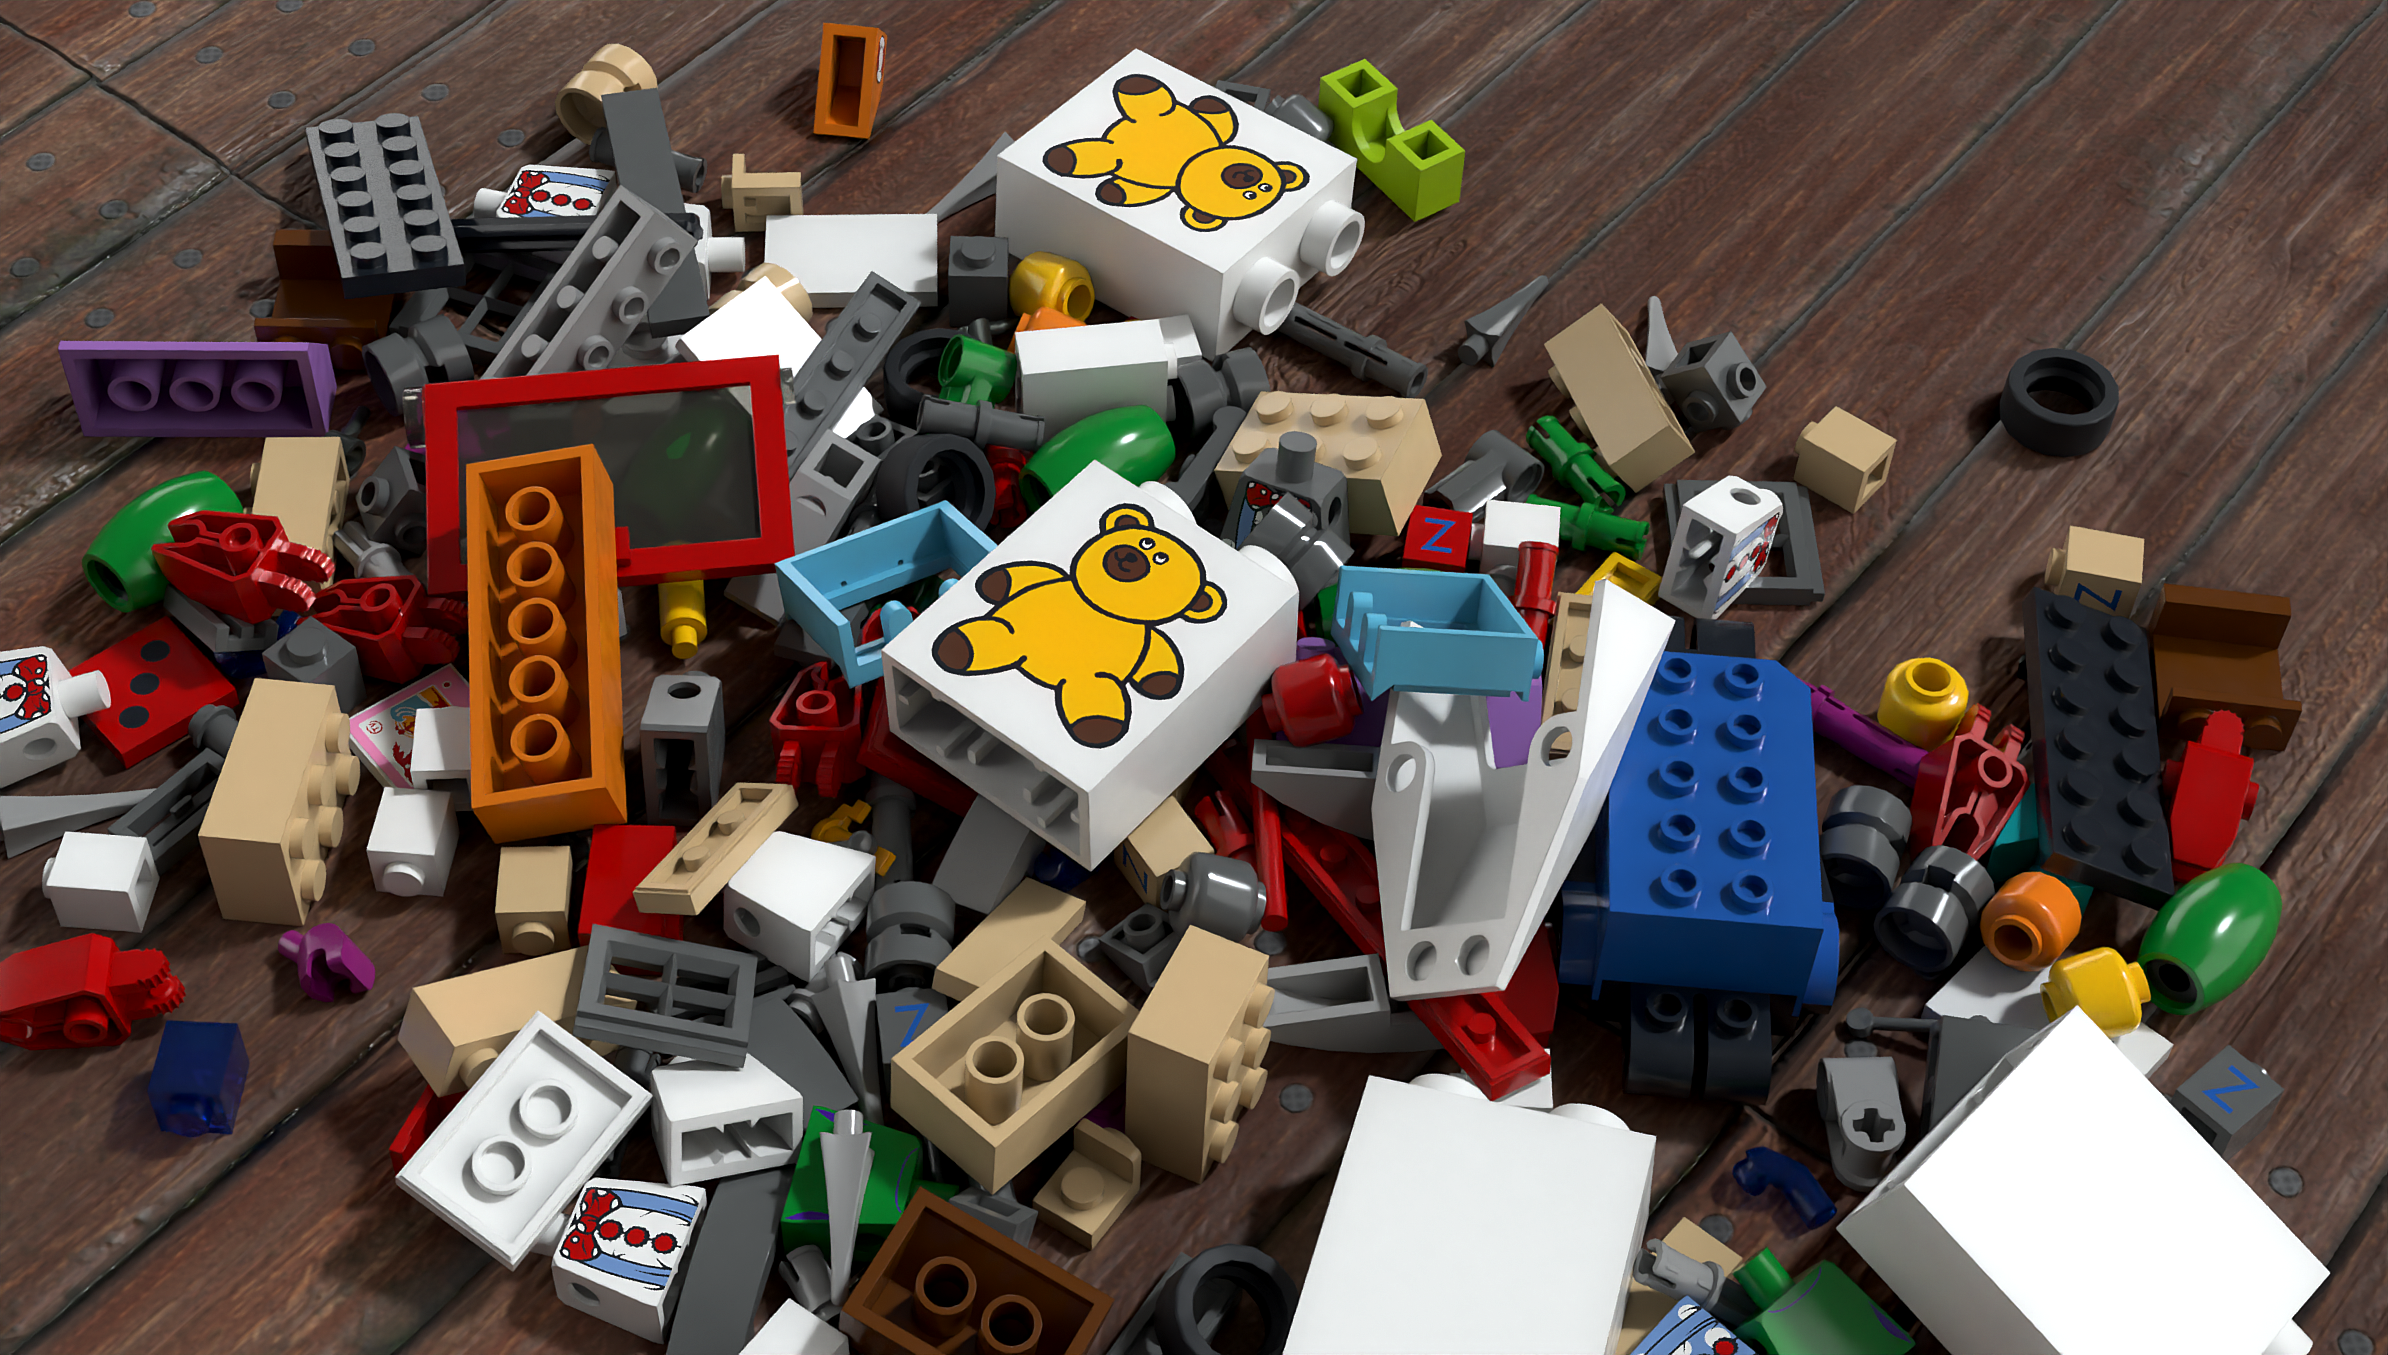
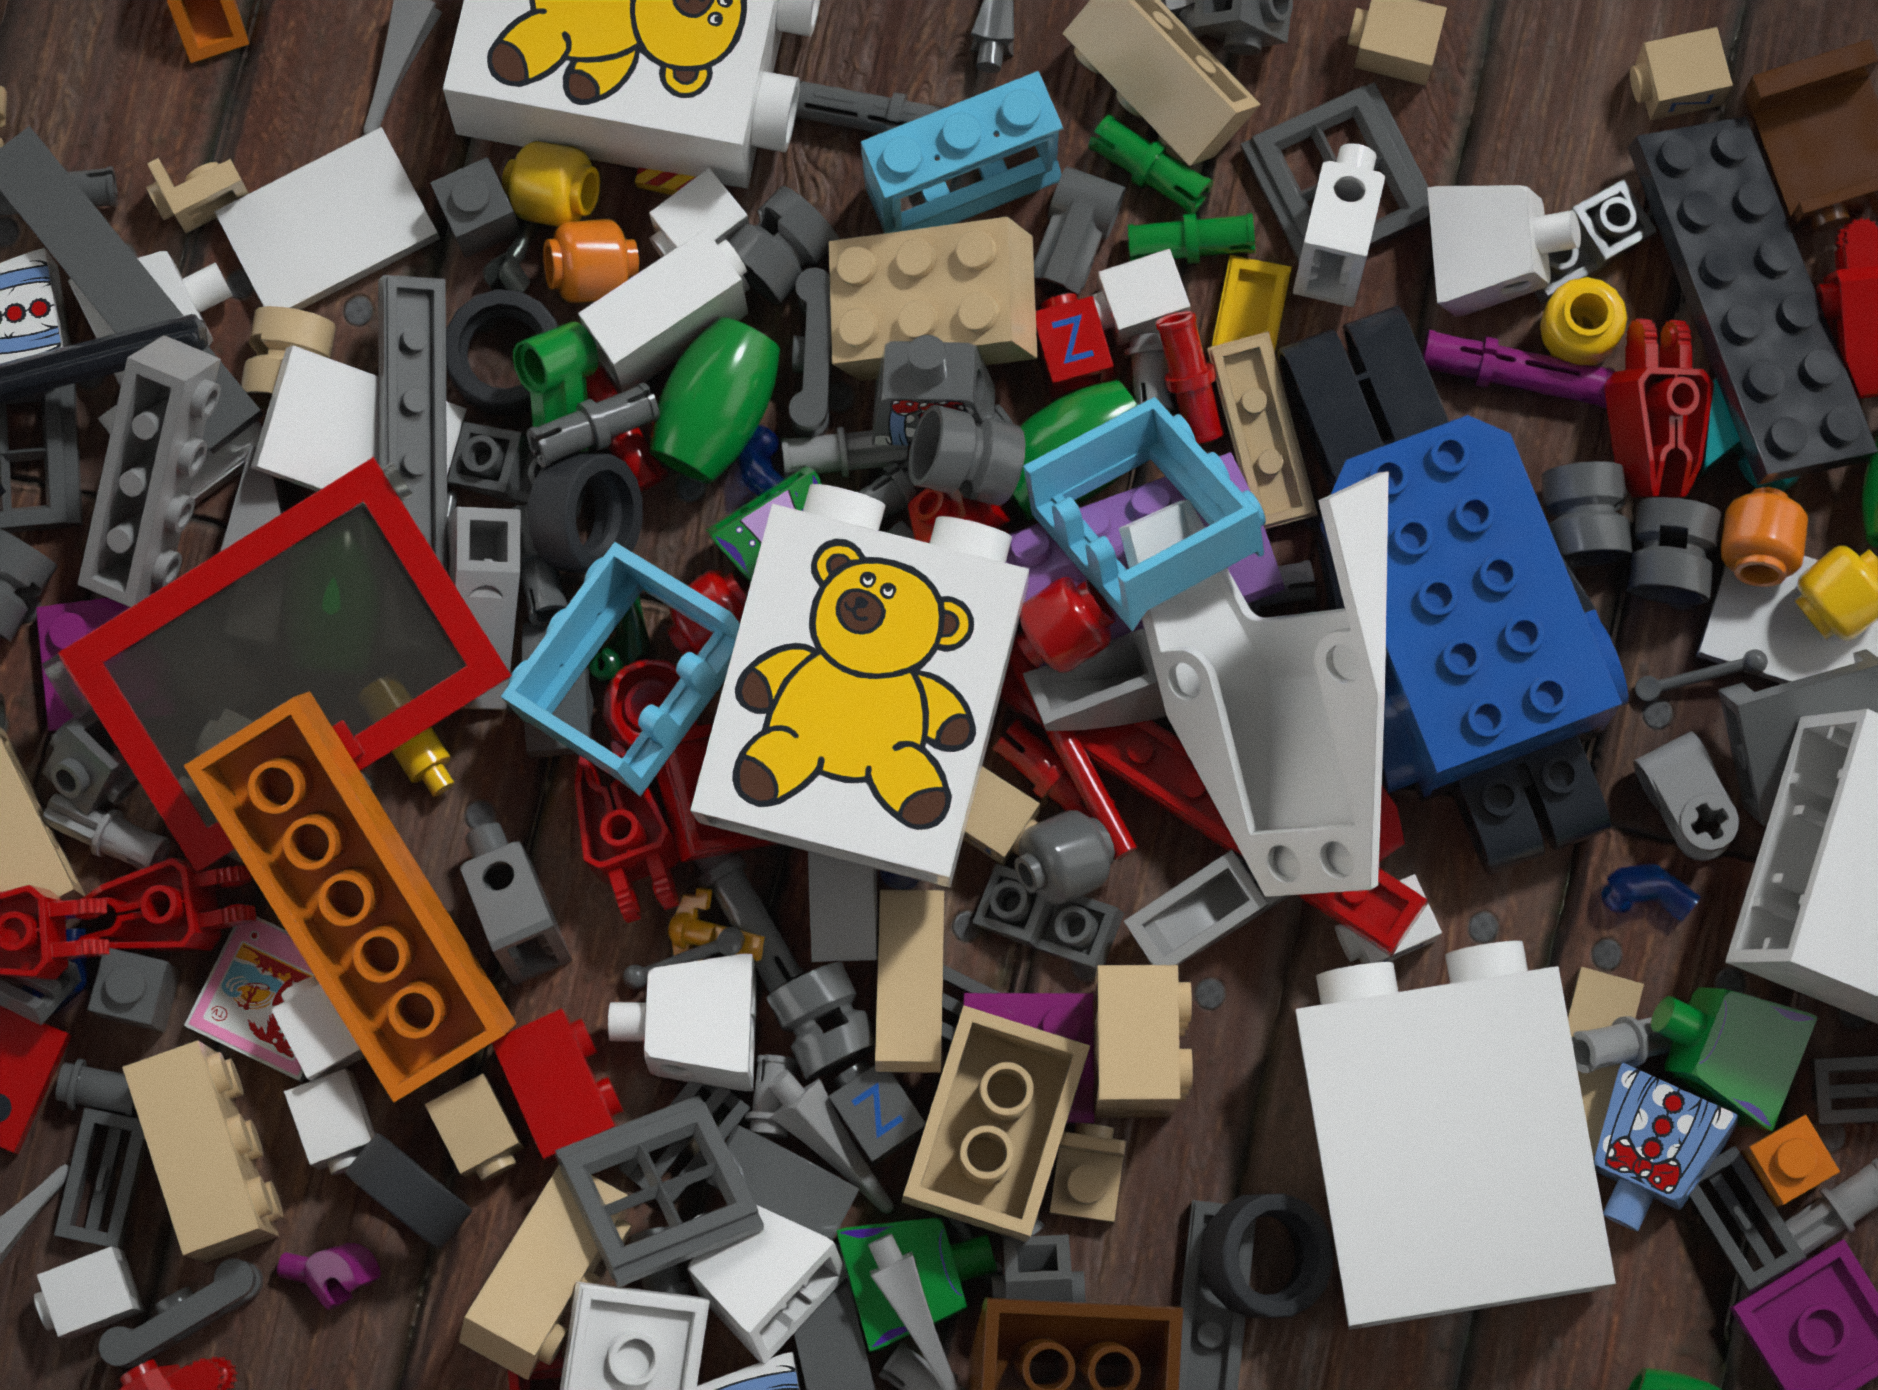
camera: 20 degrees left, 30 degrees up
(184, 933) = (183, 1315): none -> dark grey plate
(439, 909) = (408, 1191): none -> black tyre
(715, 849) = (615, 1019): tan tile -> none
(1421, 336) = (964, 140): none -> medium azure window
(1862, 617) = (1493, 244): none -> white torso
(1978, 652) = (1609, 229): none -> dark grey slope

